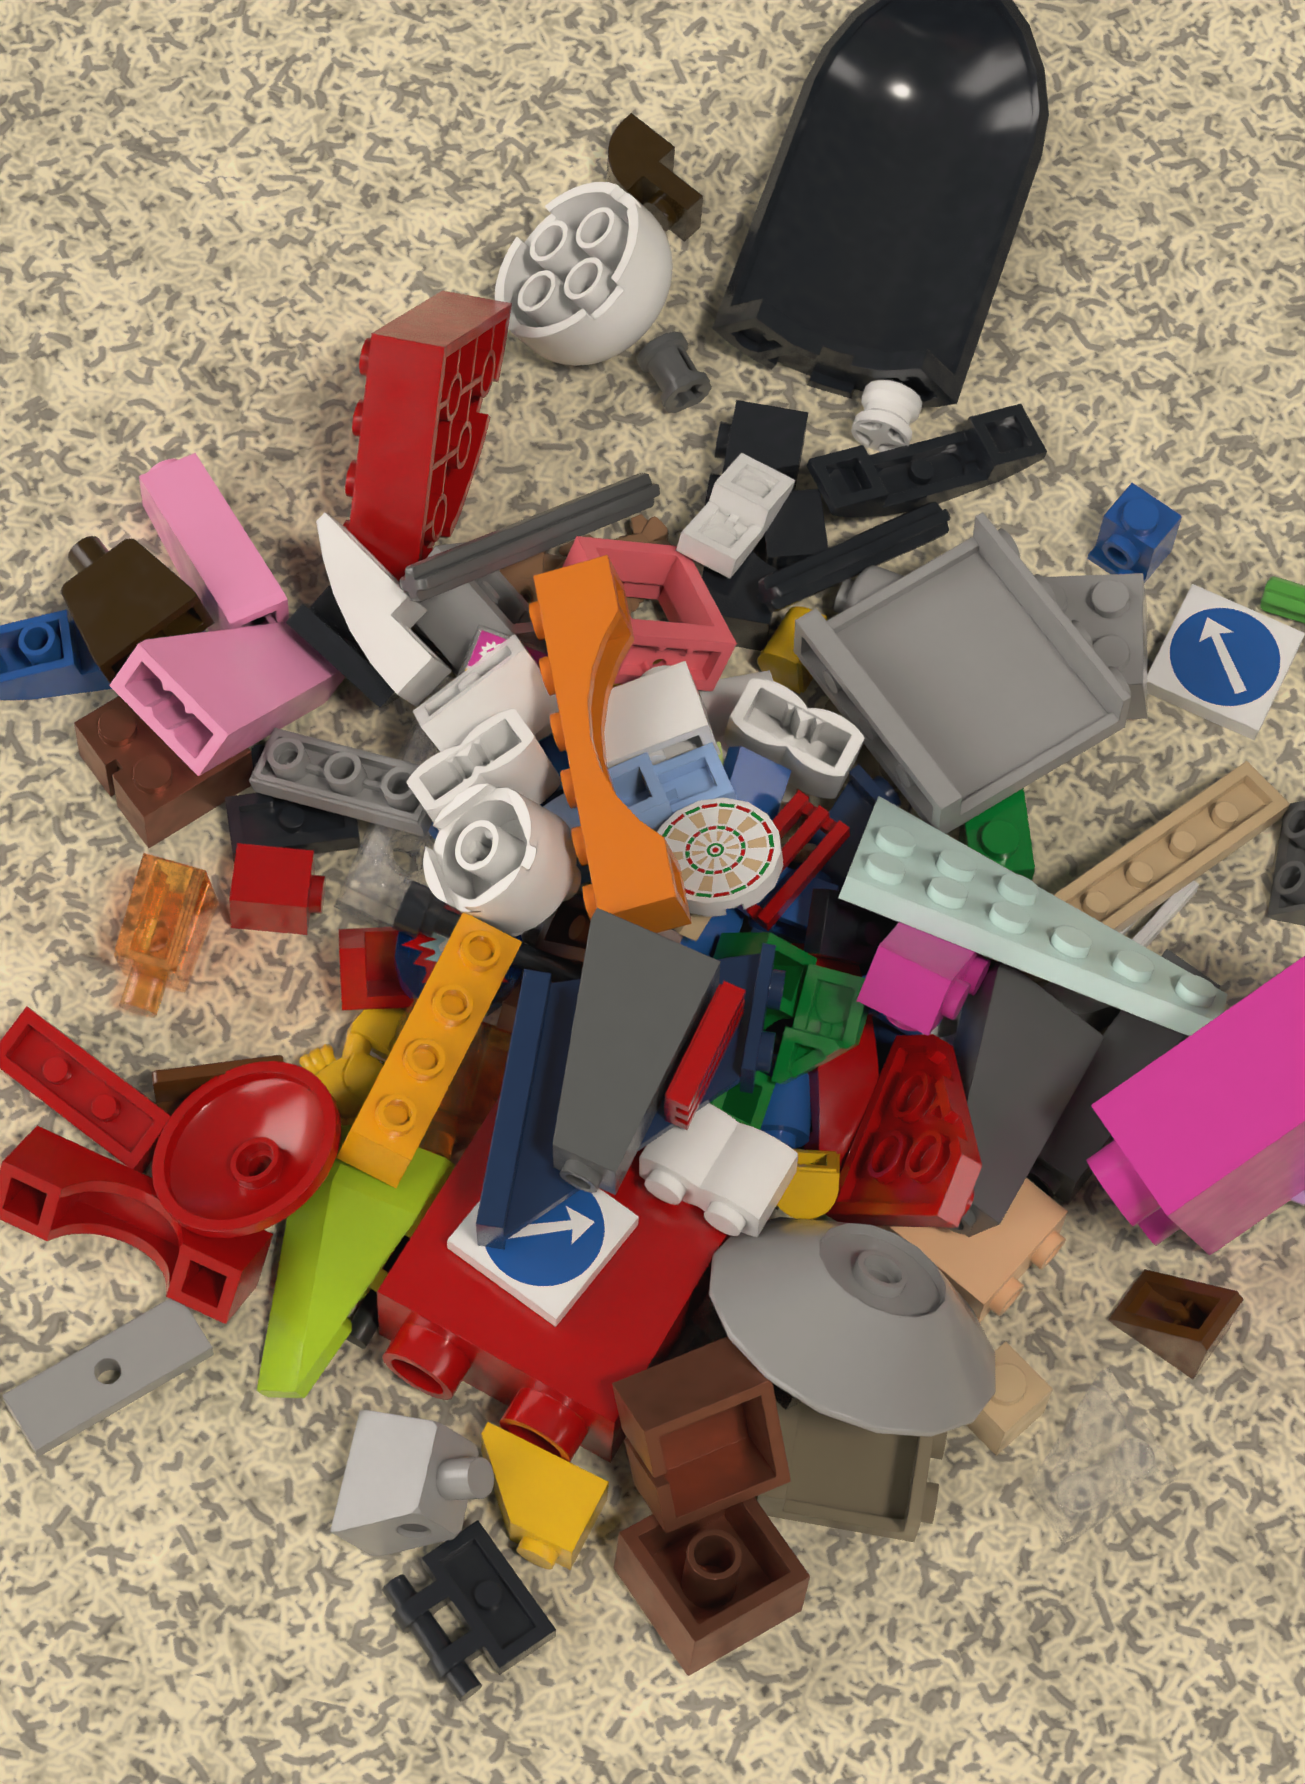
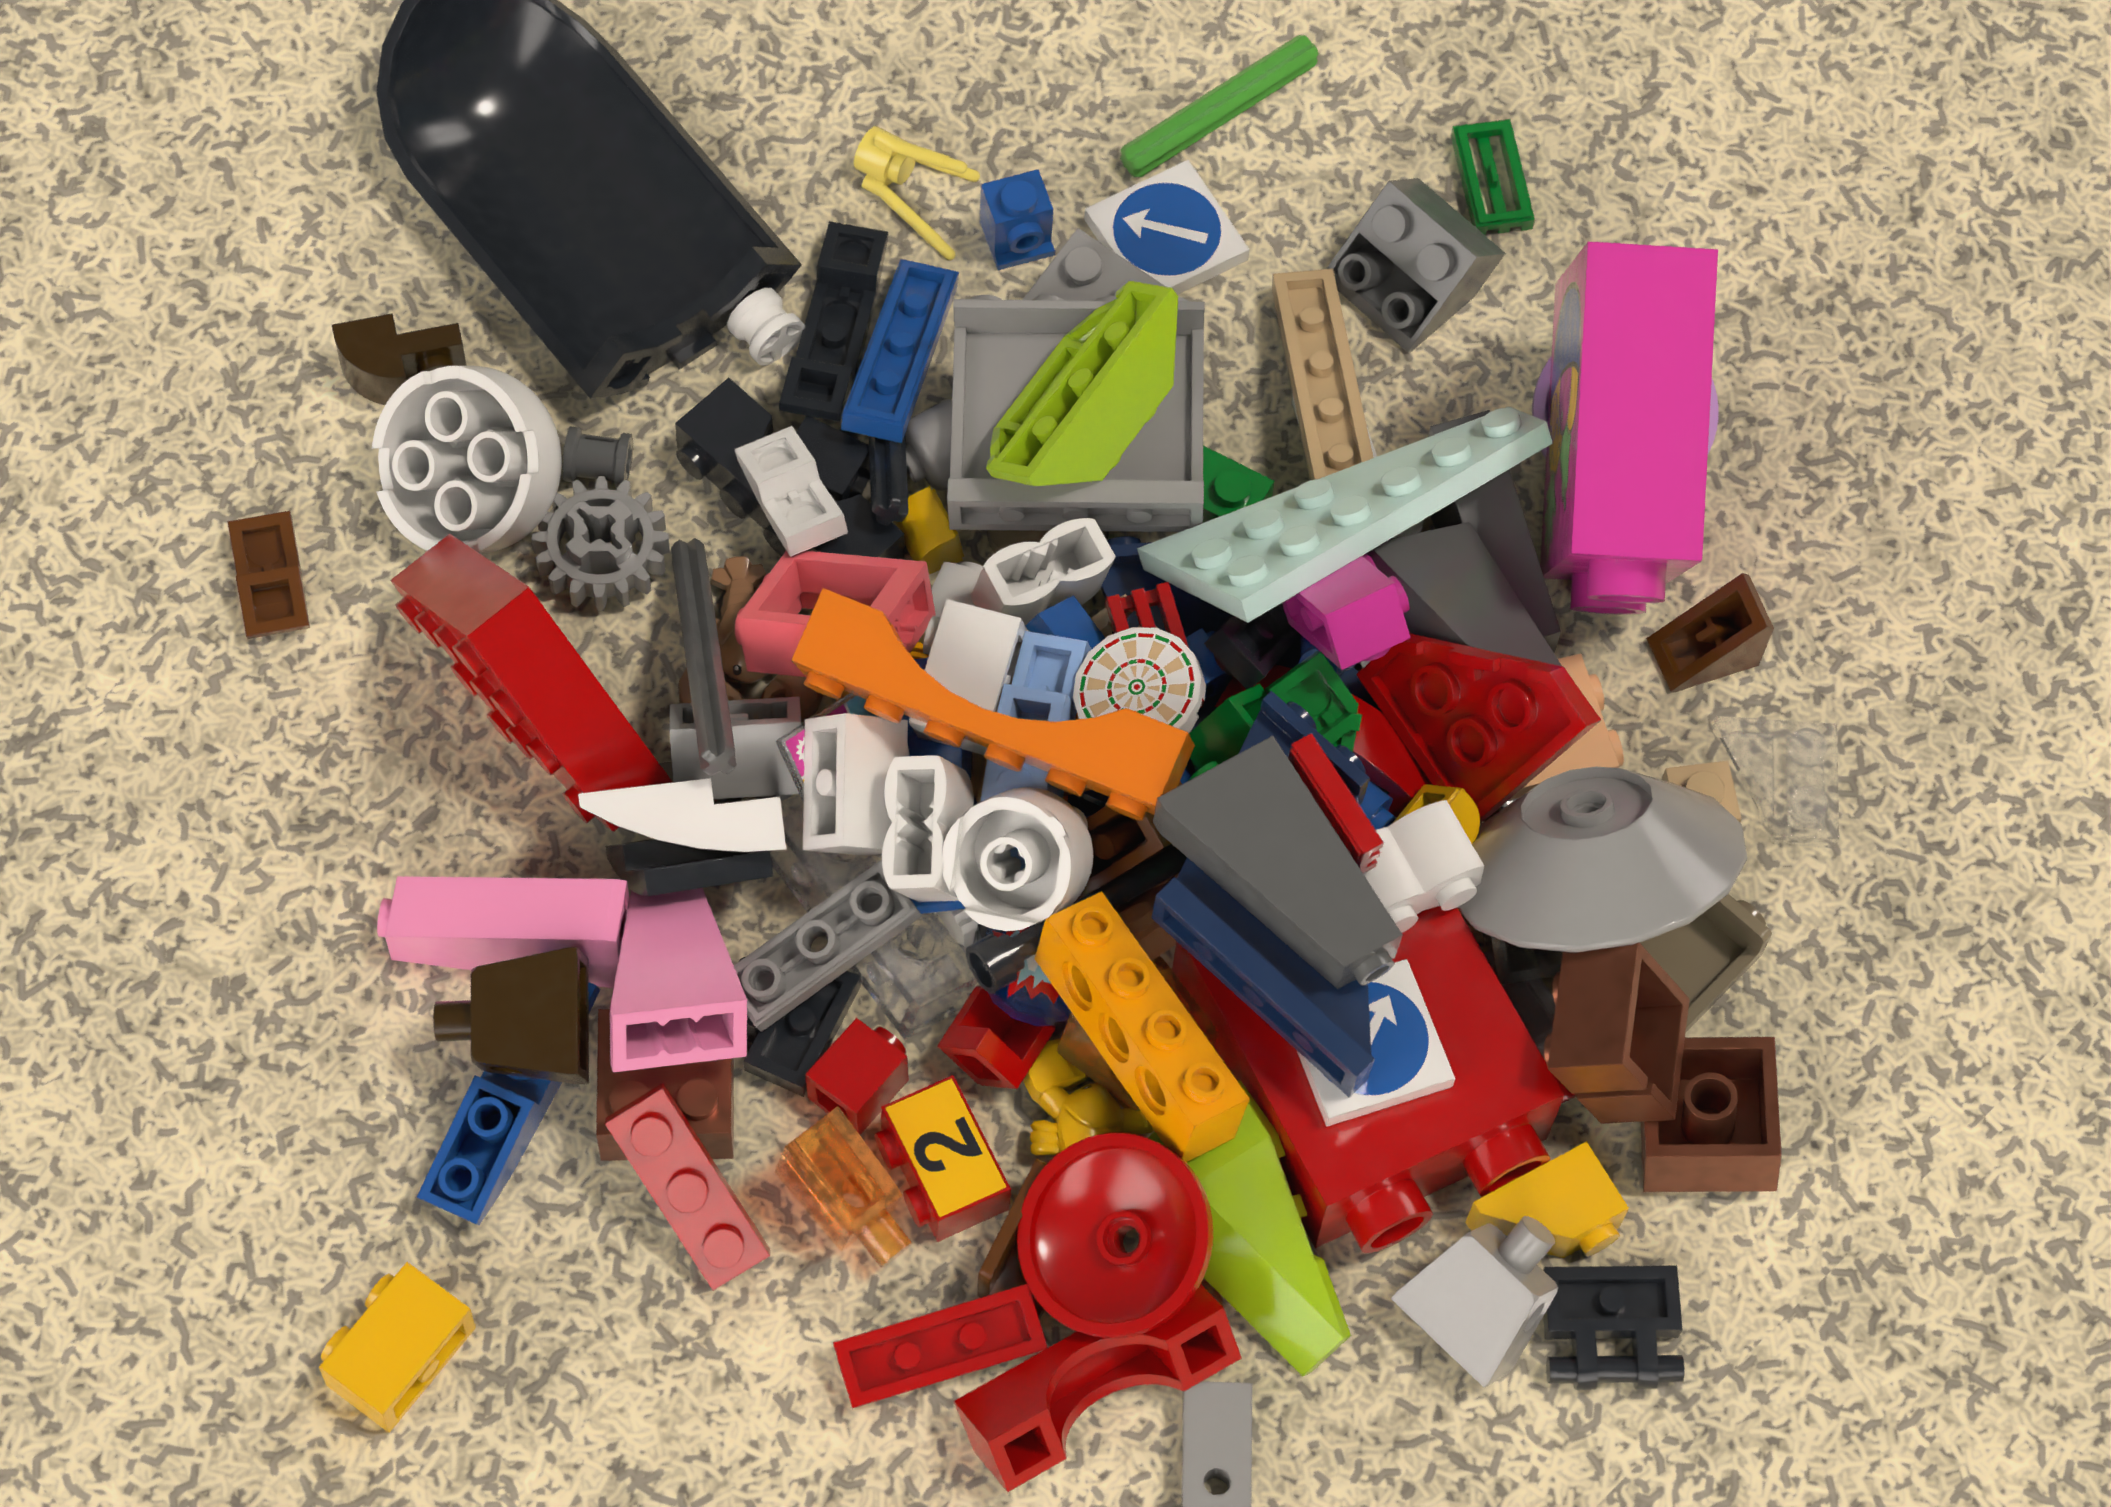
camera: 55 degrees left, 0 degrees up
(80, 817) = (687, 1186): none -> plate
(247, 993) = (943, 1159): none -> brick
(393, 223) = (268, 574): none -> reddish brown slope
(629, 429) = (601, 567): none -> light grey gear
(932, 520) = (900, 351): none -> blue tile
(967, 666) = (1091, 392): none -> lime wedge
(1116, 416) = (891, 159): none -> light yellow plant

